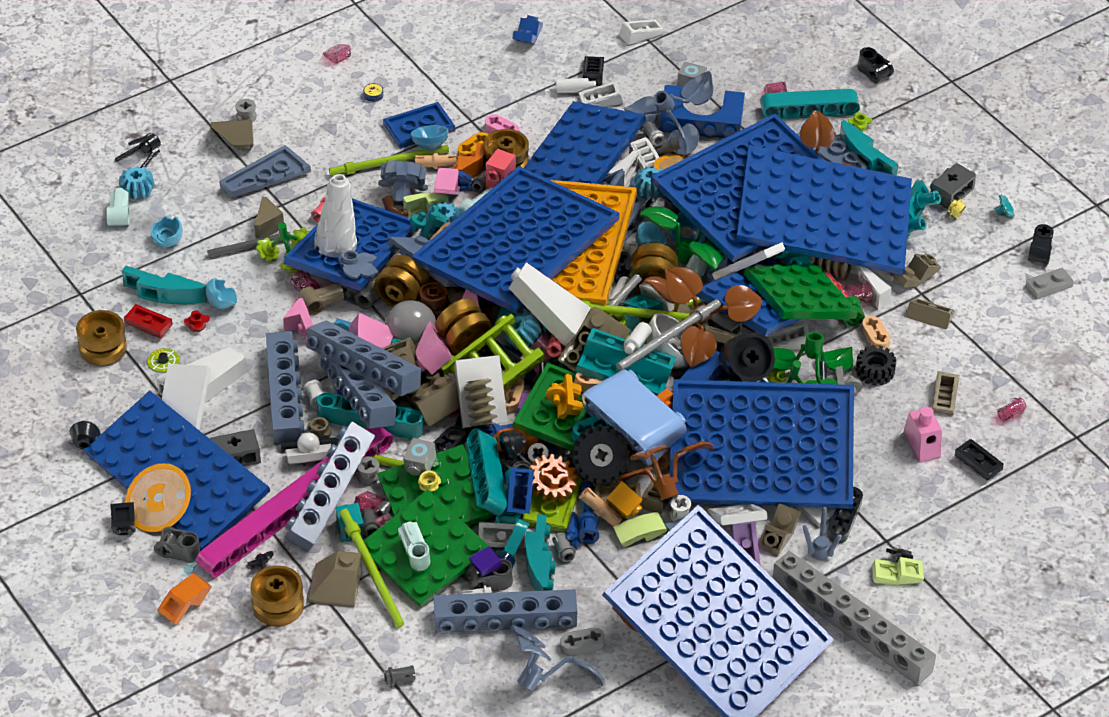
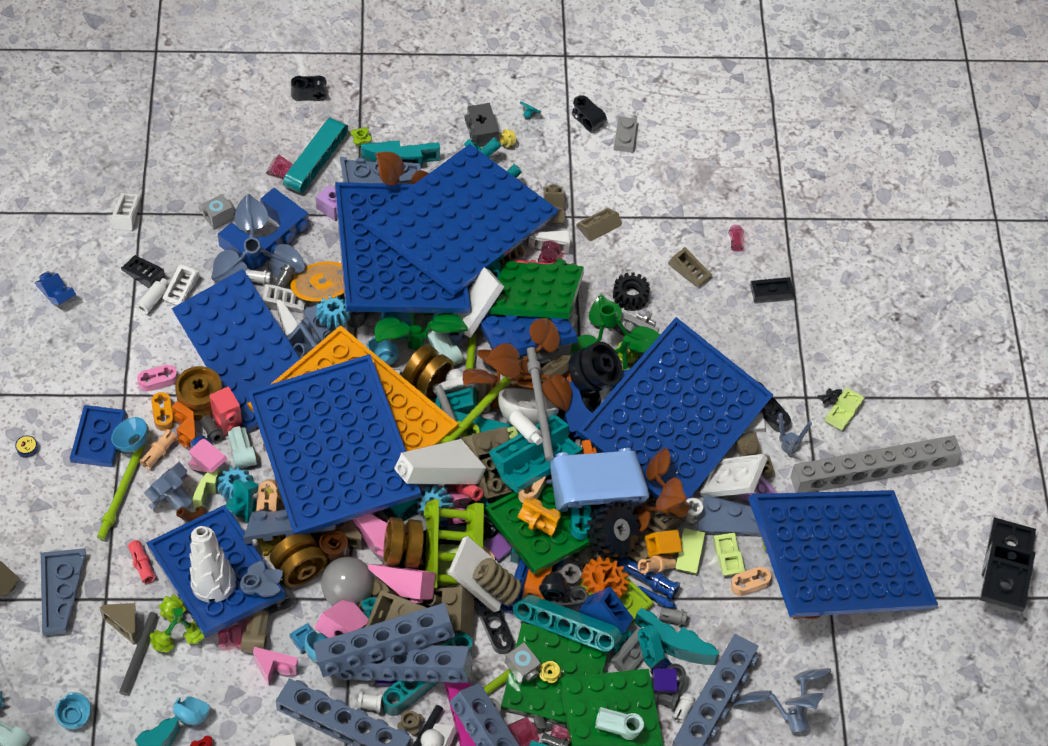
camera: 60 degrees left, 10 degrees up
(582, 641) = (783, 662): light grey beam -> none
(880, 332) = (597, 270): light nougat beam -> none
(924, 427) = (728, 306): bright pink torso -> none

